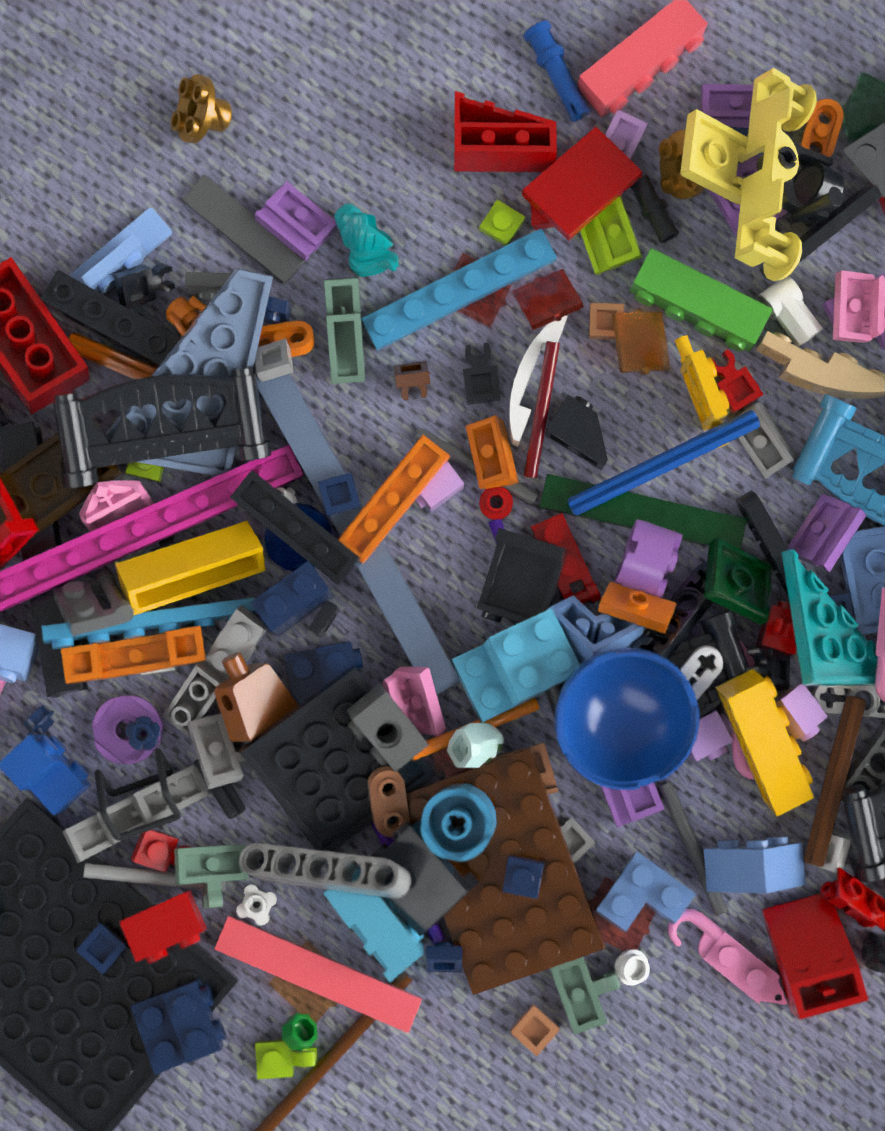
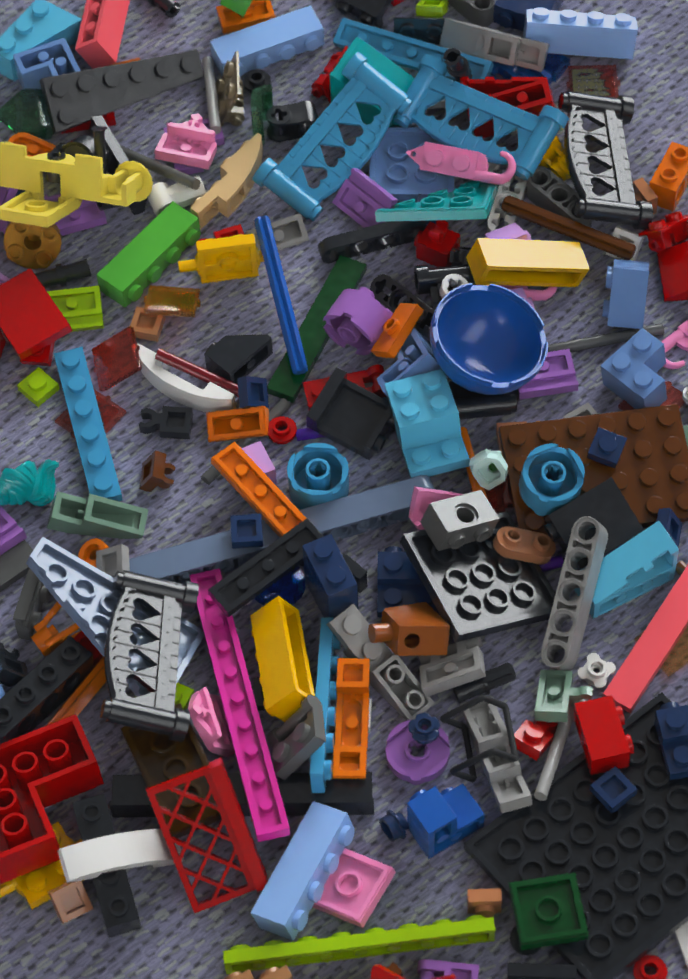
camera: 75 degrees left, 25 degrees down
(445, 543) = (317, 475): none -> dark azure brick
(526, 461) = (252, 392): none -> dark blue plate
(738, 581) = (391, 261): dark green plate -> none
(822, 280) = (162, 169): none -> dark grey bar

